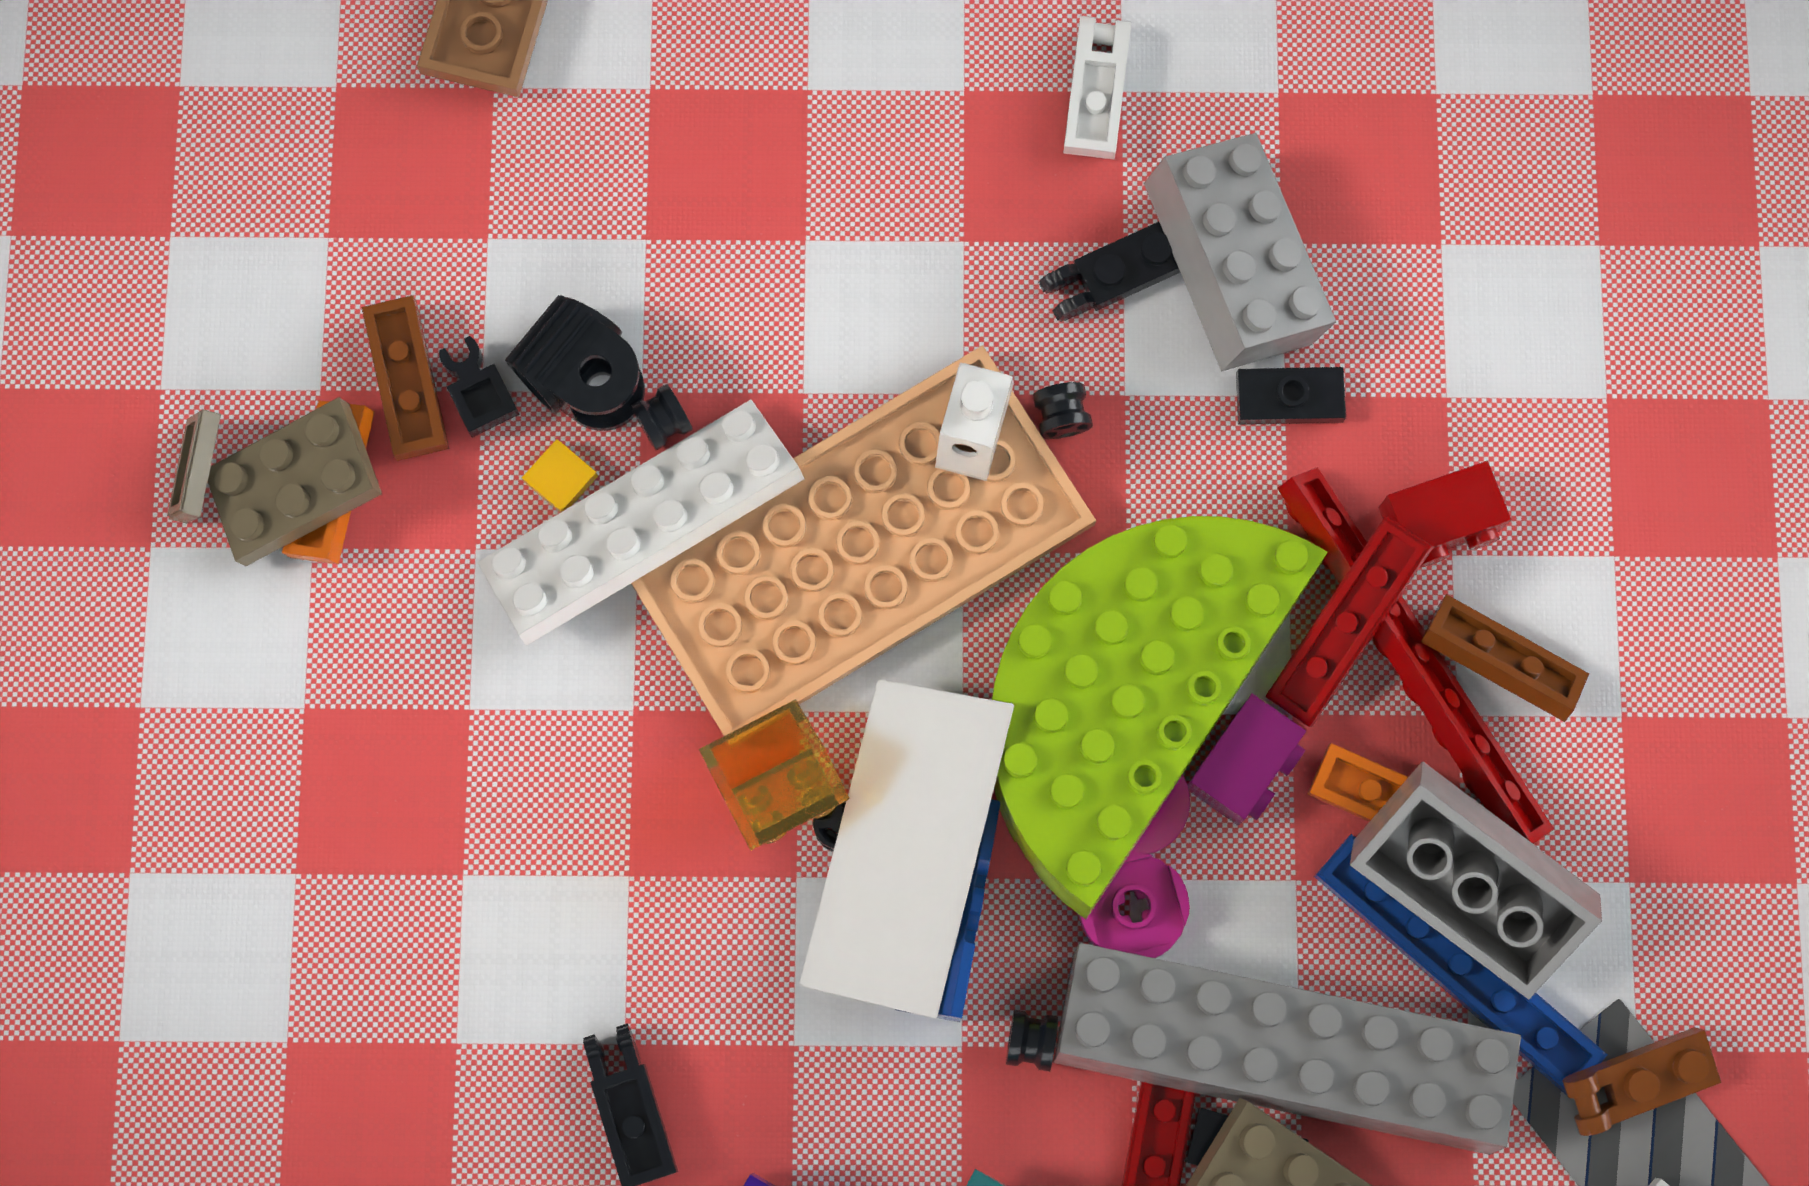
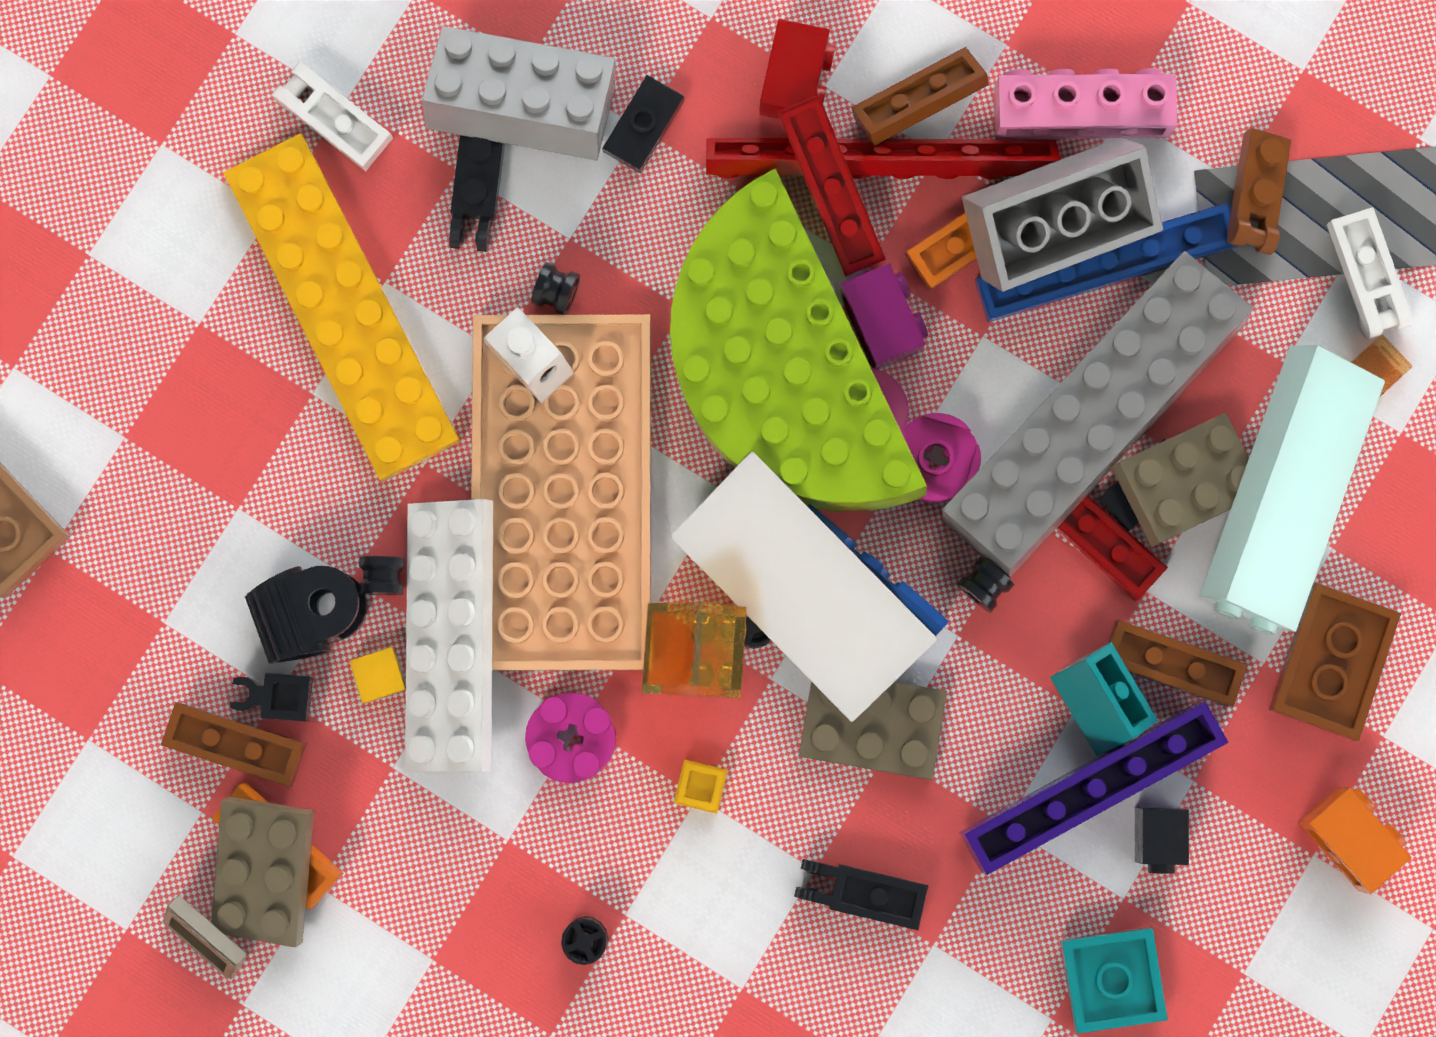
camera: 55 degrees left, 5 degrees up
(402, 842) = (578, 944): none -> black wheel
(584, 692) = (548, 751): none -> dark pink plate
(640, 871) = (700, 786): none -> yellow tile
(812, 1035) = (891, 736): none -> dark tan plate
(909, 216) = (341, 307): none -> yellow plate
(1611, 838) = (1085, 105): none -> bright pink brick

